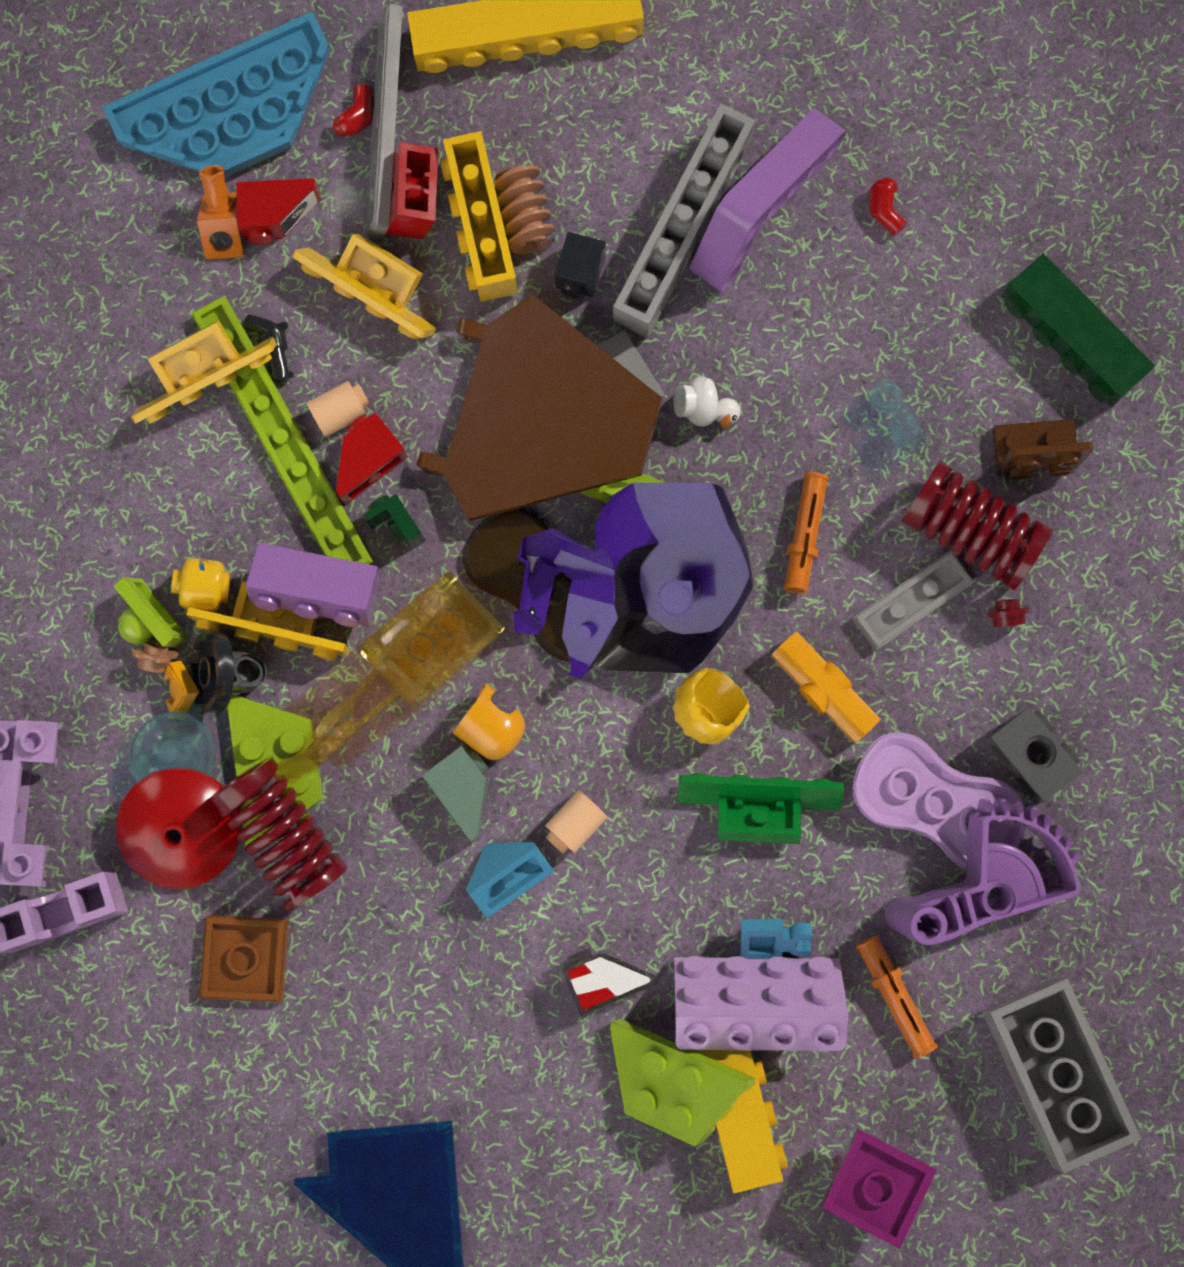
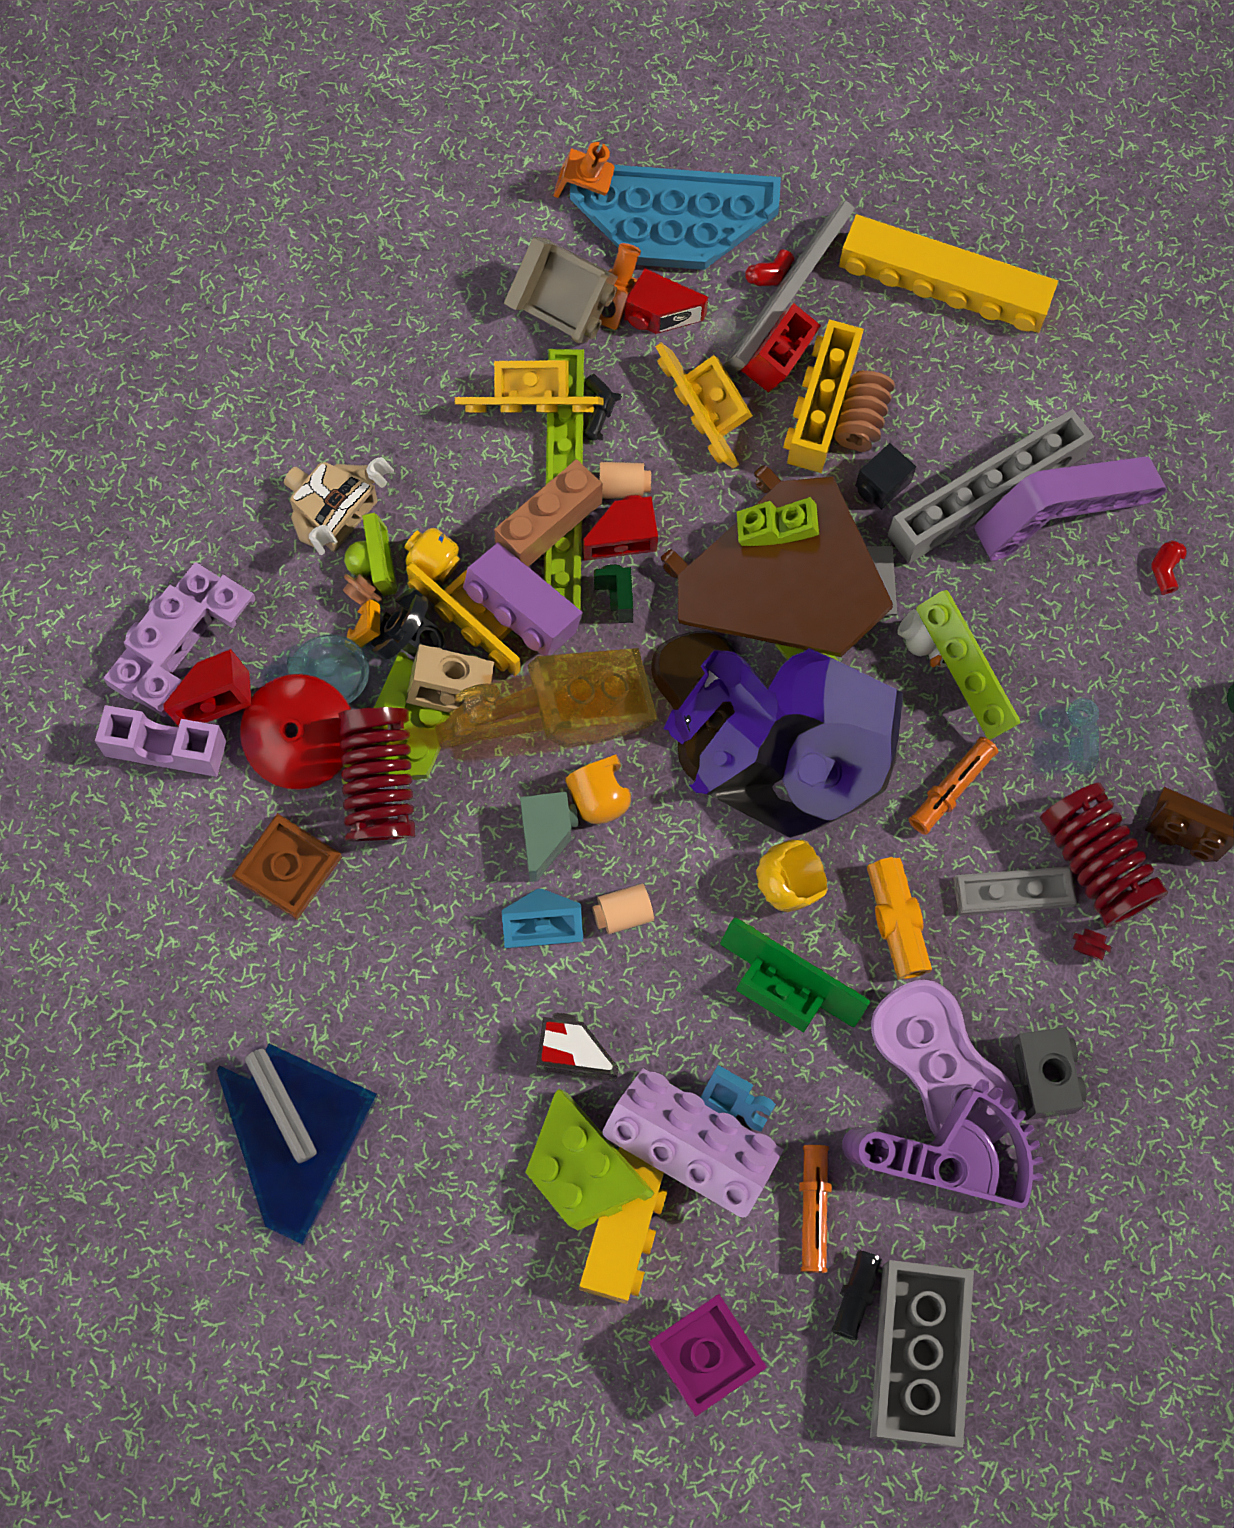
camera: 20 degrees right, 10 degrees down
(74, 838) = (211, 690): none -> red slope
(75, 585) = (333, 500): none -> torso
(121, 111) = (586, 170): none -> orange bracket
(169, 247) = (562, 289): none -> dark tan panel
(282, 718) = (442, 674): none -> tan brick
(290, 485) = (550, 513): none -> nougat brick
(373, 1186) = (280, 1105): none -> light grey axle
(505, 376) = (772, 525): none -> lime slope
(759, 413) = (968, 664): none -> lime bracket
(974, 1052) = (857, 1295): none -> black pin

